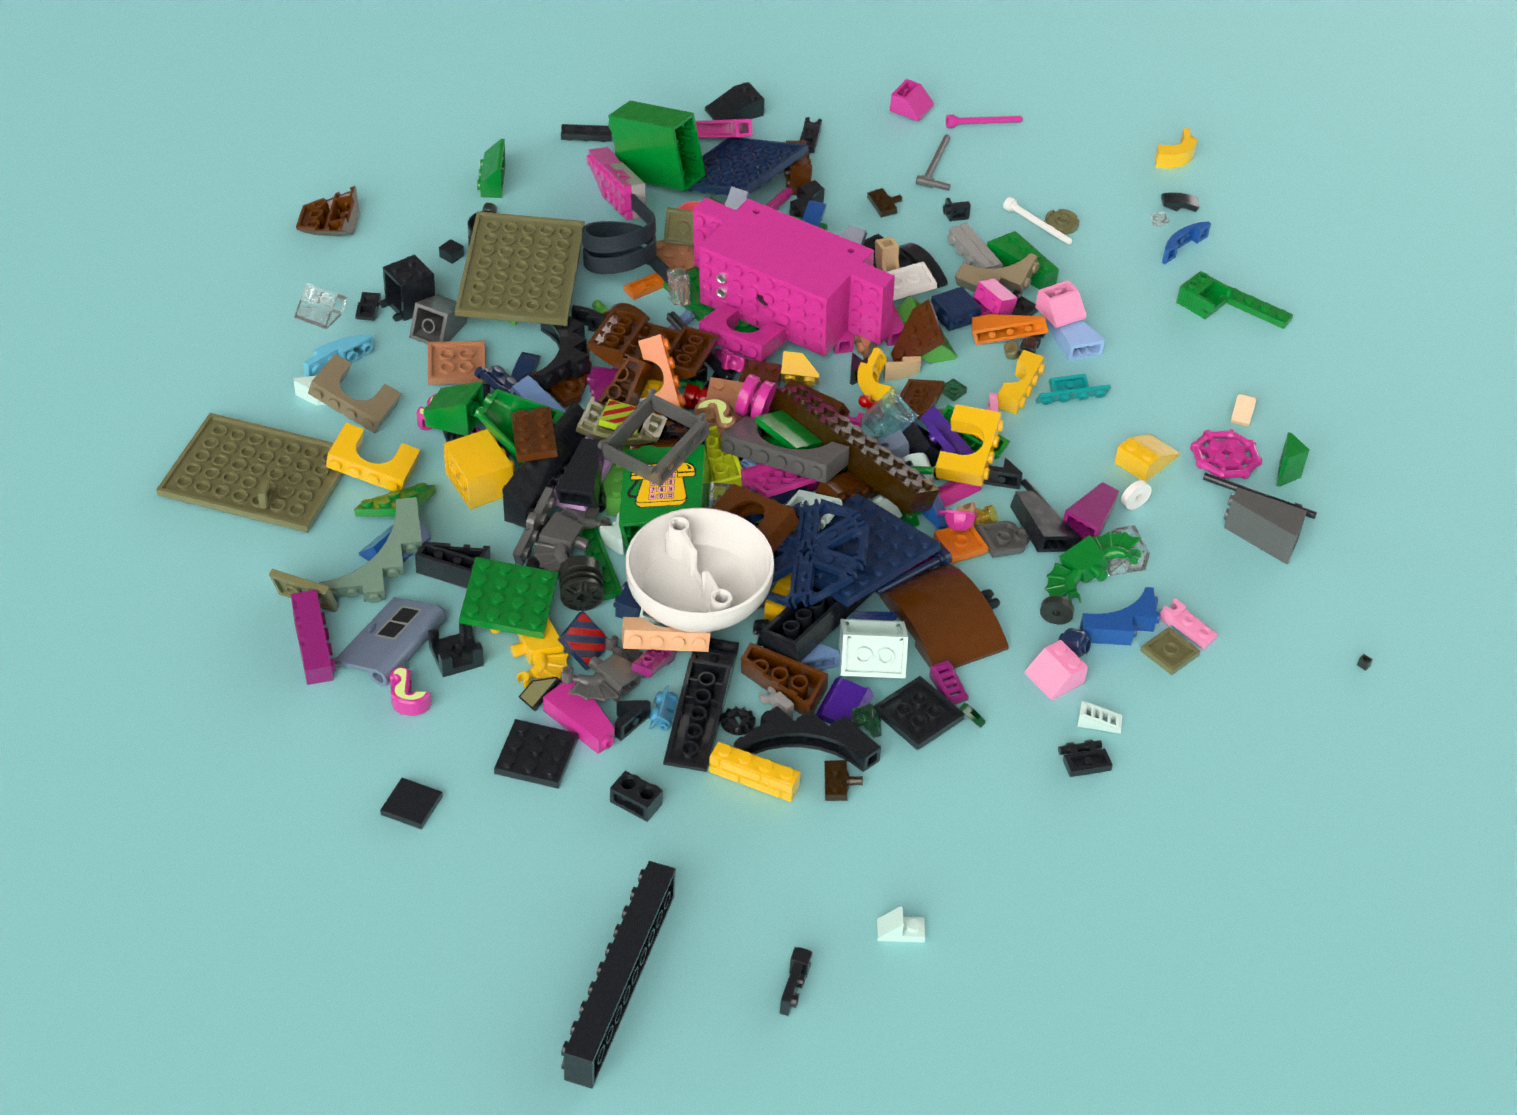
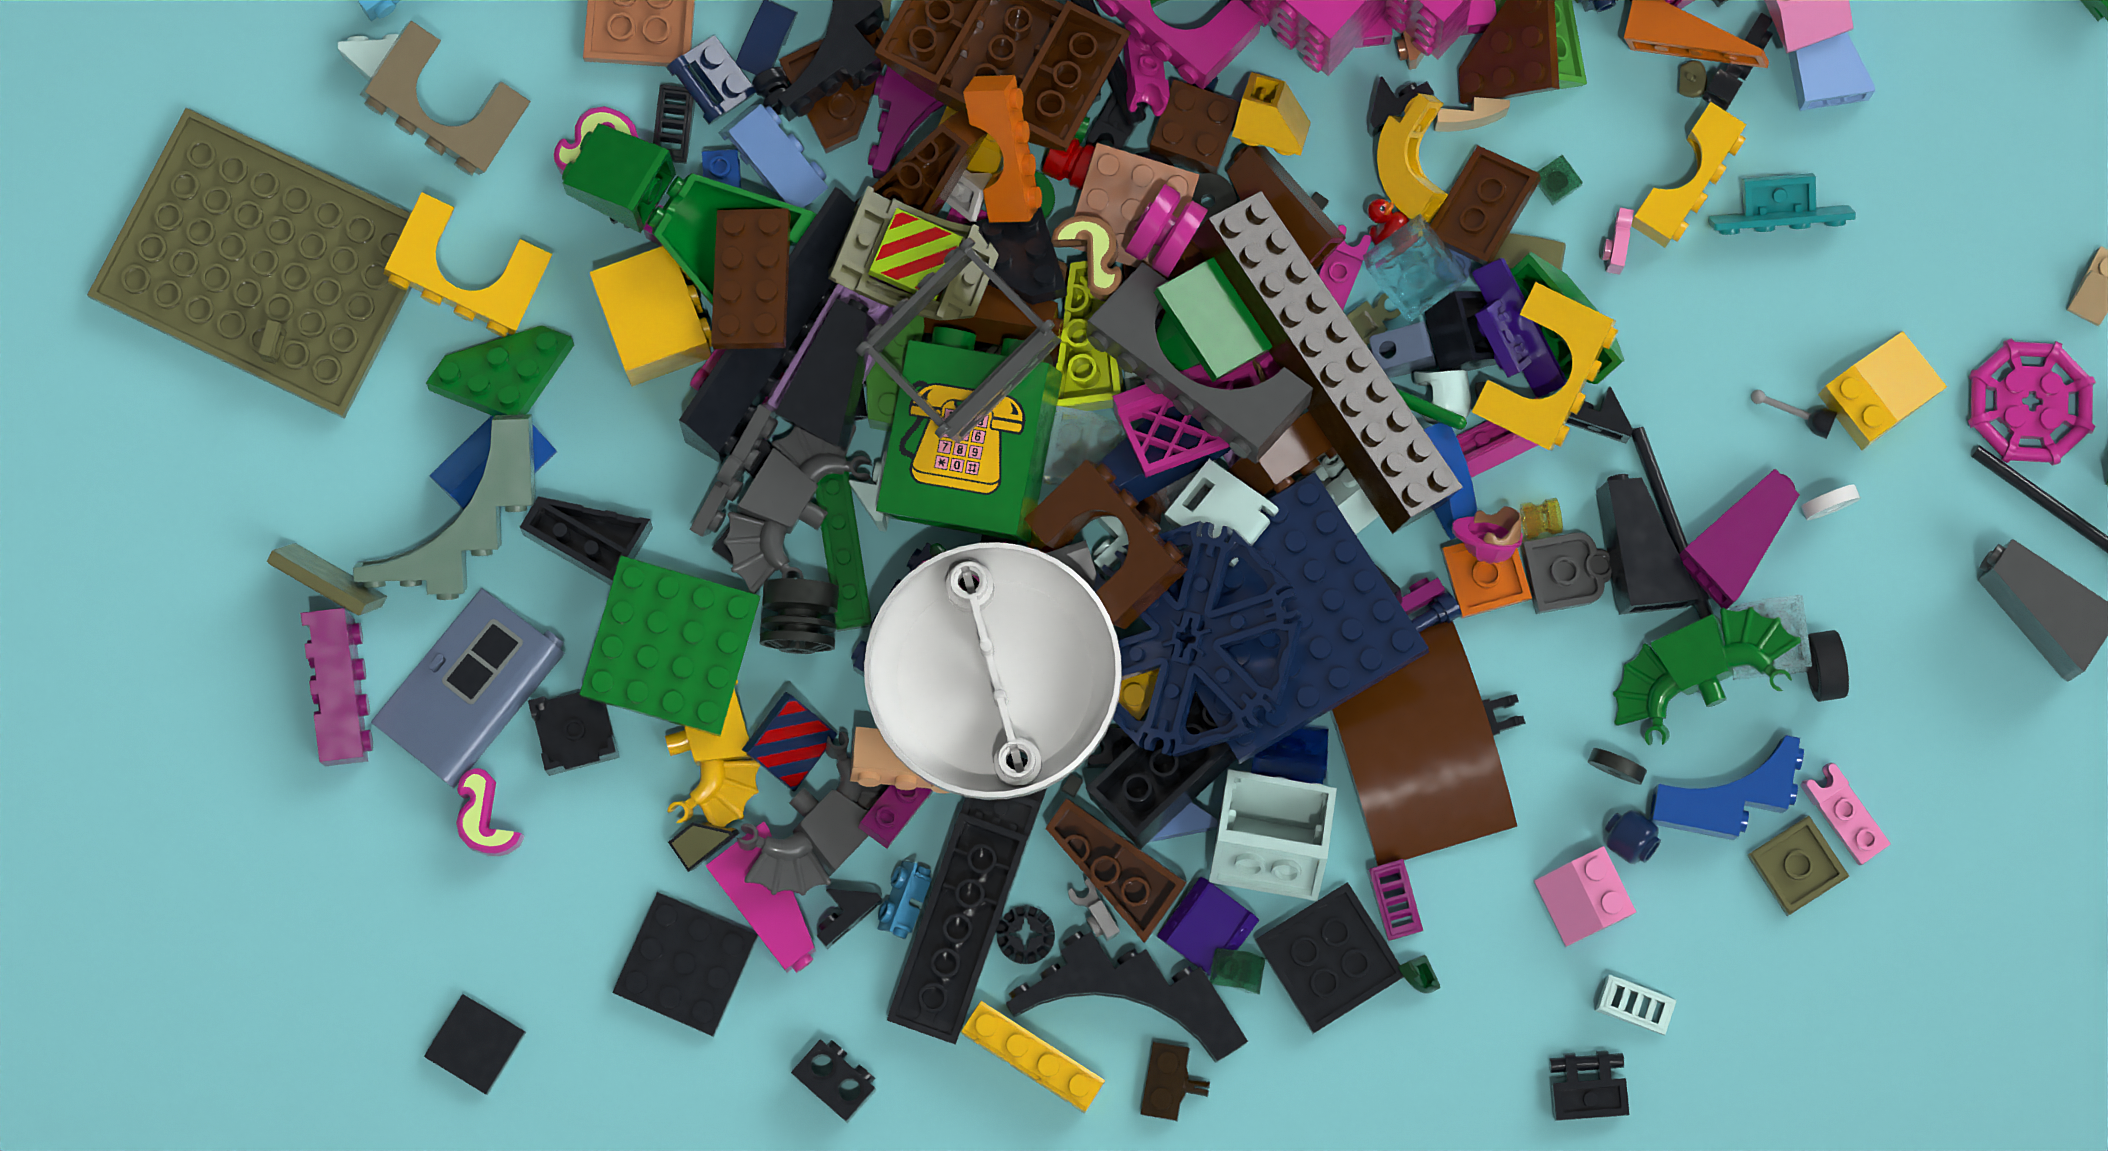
camera: 10 degrees right, 35 degrees up
(1118, 468) = (1819, 421): none -> hinge
(1160, 558) = (1829, 667): none -> black tyre

